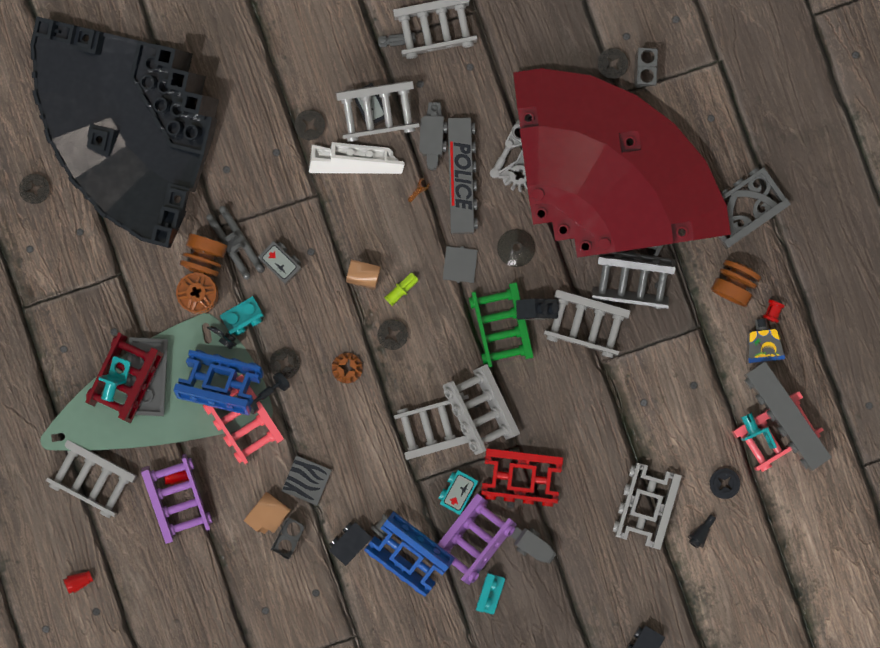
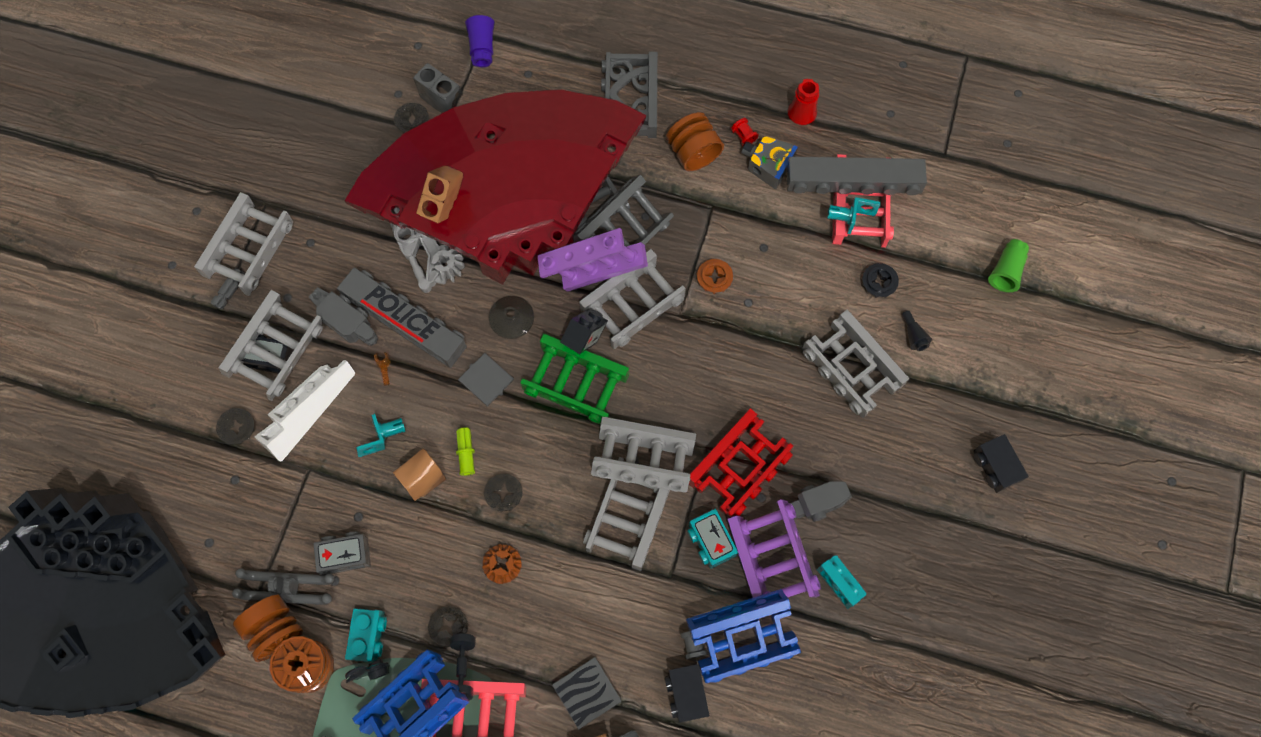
camera: 50 degrees left, 15 degrees down
(375, 225) = (382, 431): none -> teal bracket
(567, 147) = (444, 174): none -> medium nougat piece
(587, 281) = (593, 260): none -> medium lavender fence
(646, 357) = (722, 269): none -> dark orange gear
(709, 66) = (480, 37): none -> dark purple plant
(799, 567) = (1010, 267): none -> bright green plant
(819, 343) = (804, 104): none -> red plant

